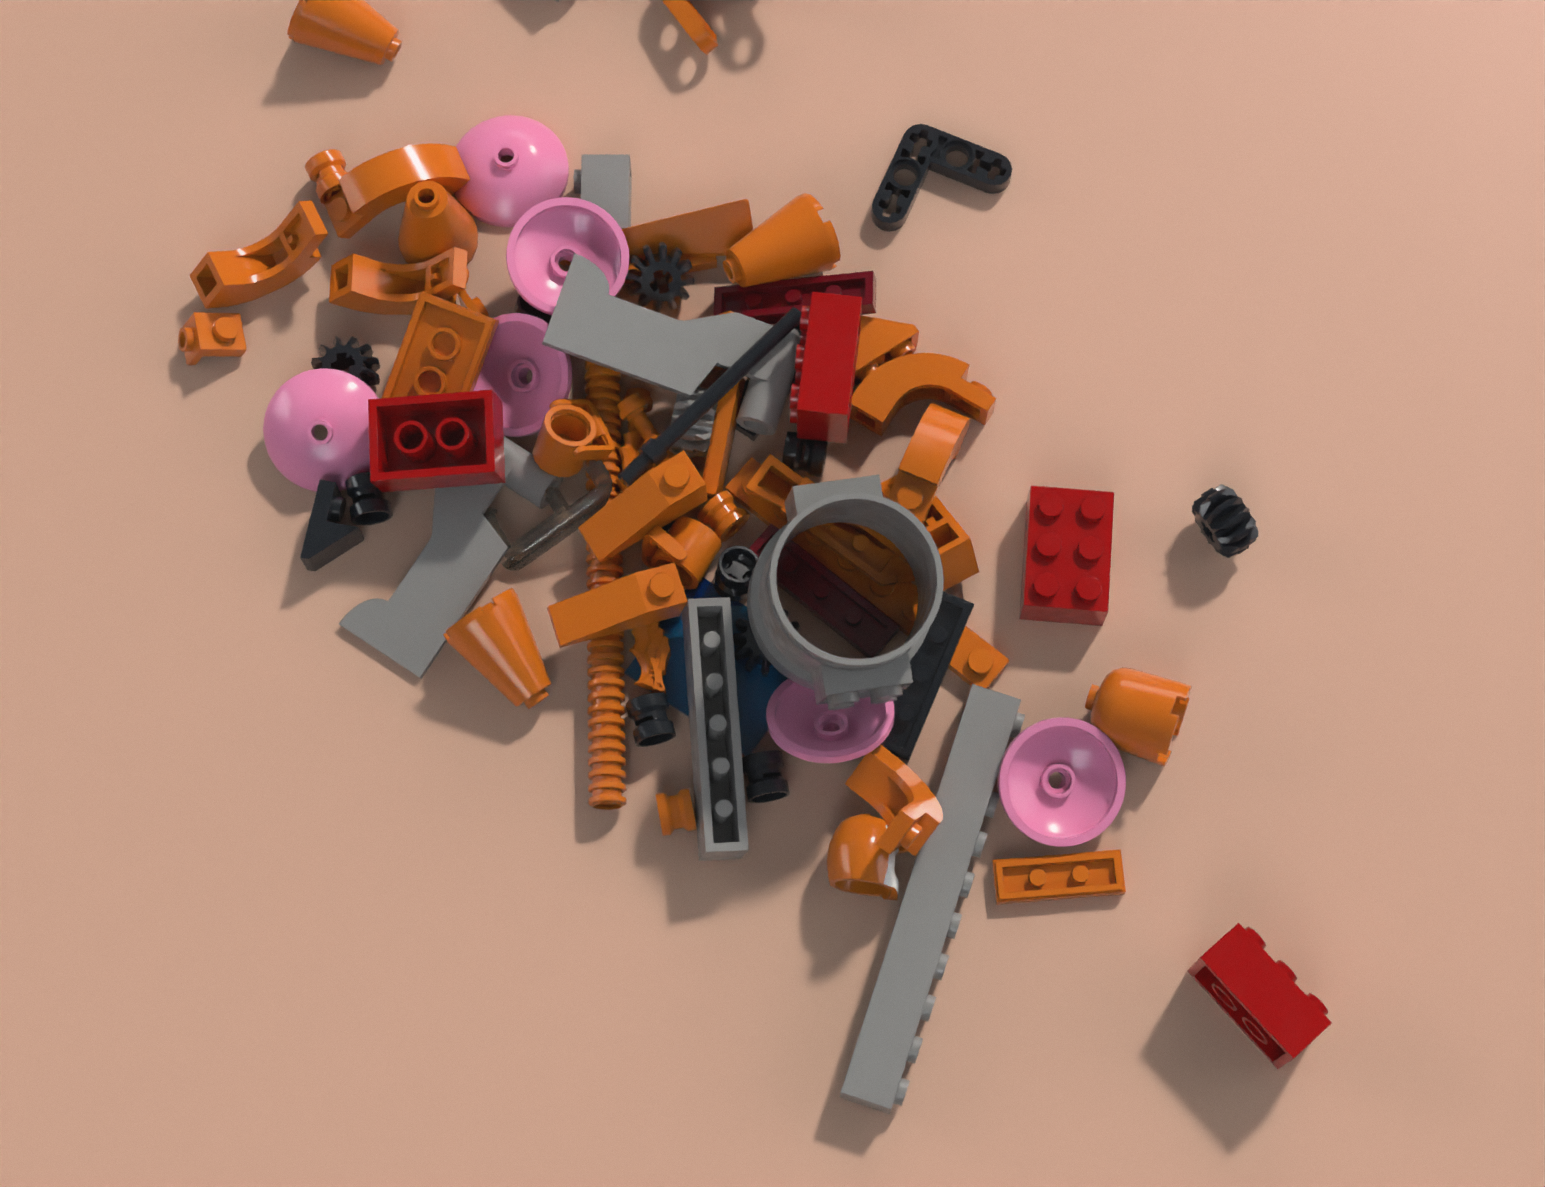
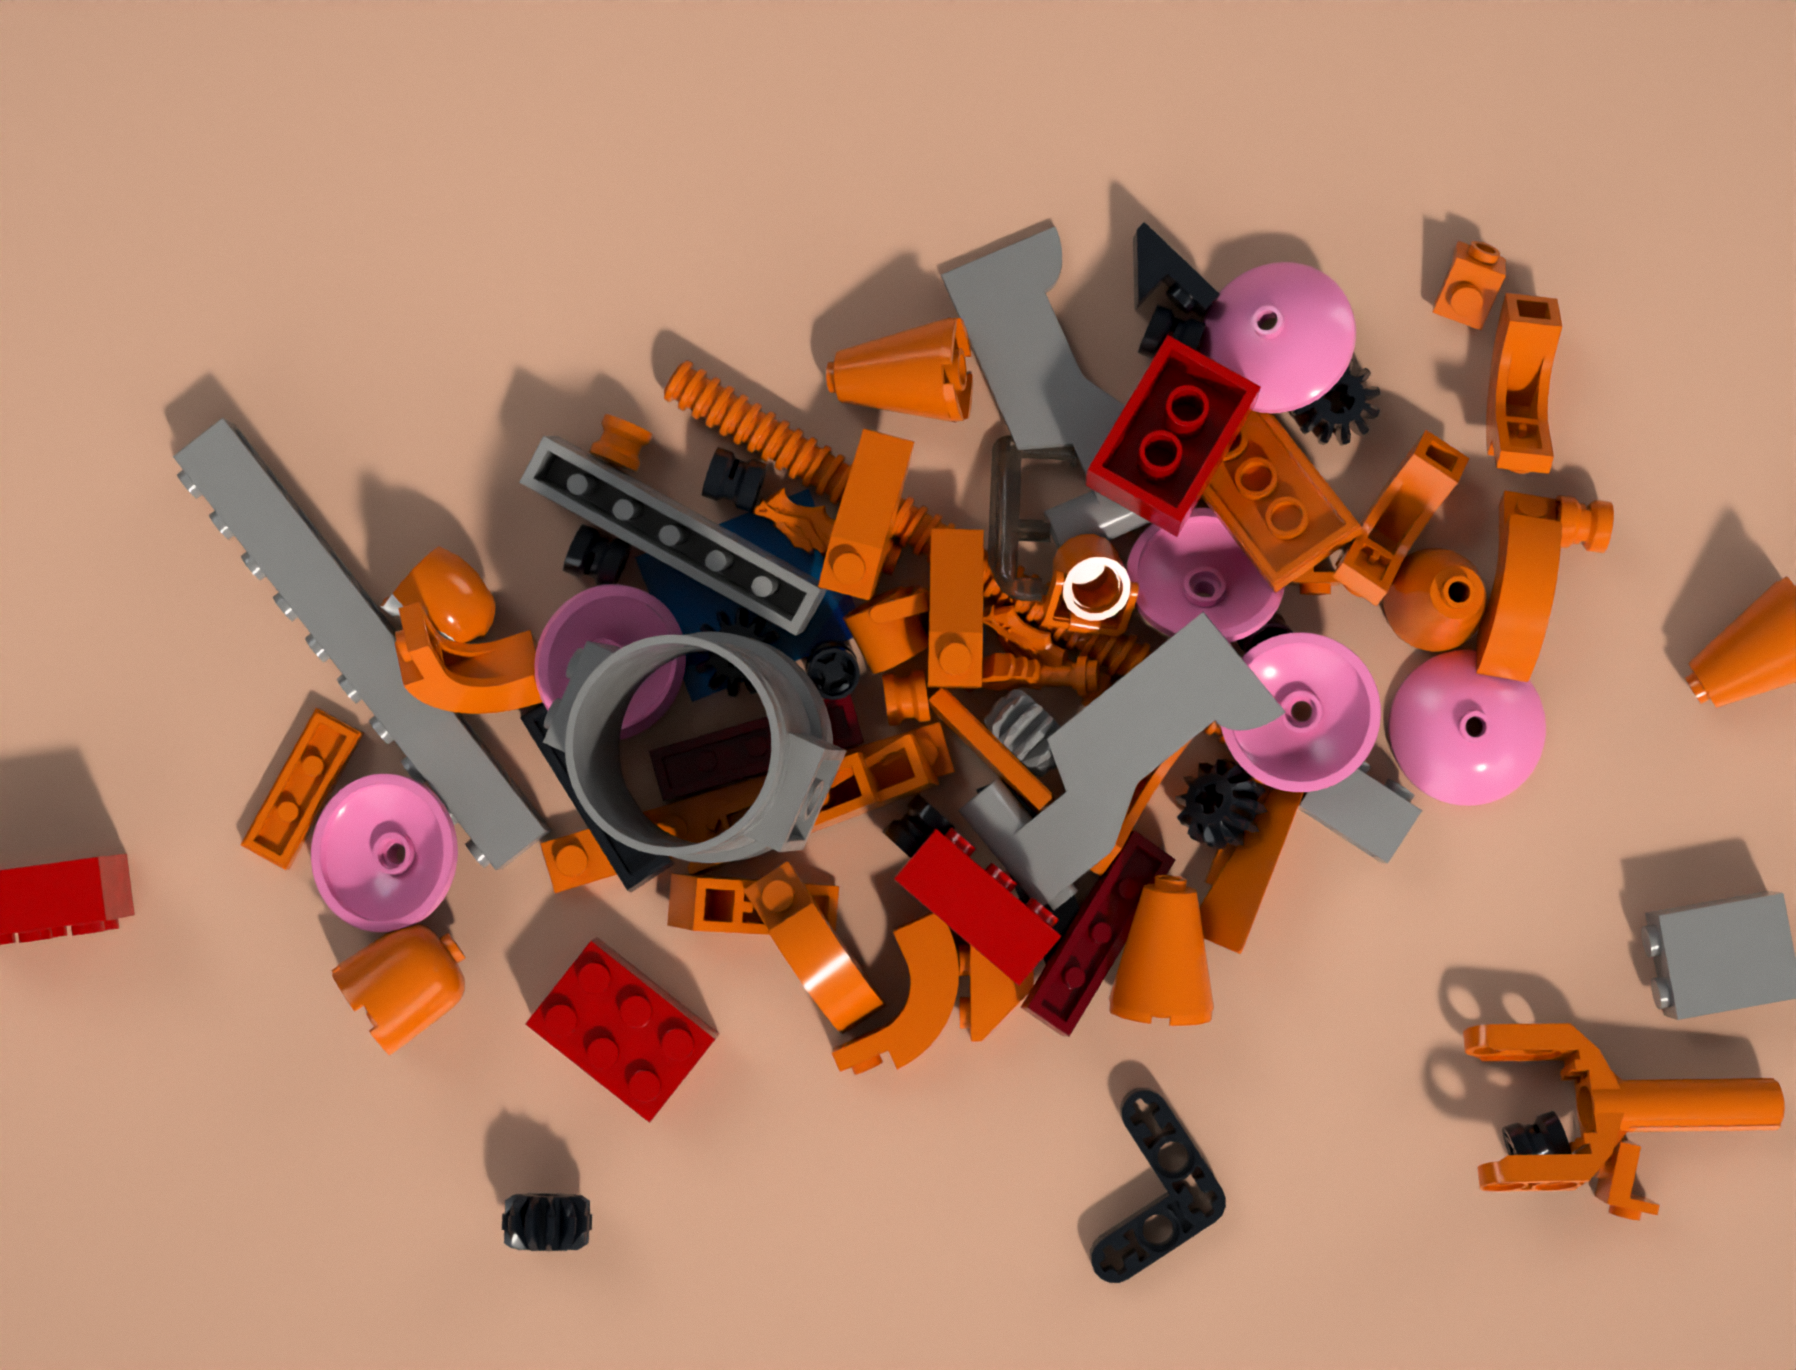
camera: 130 degrees right, 15 degrees up
(655, 450) = (1006, 657): black bar -> none

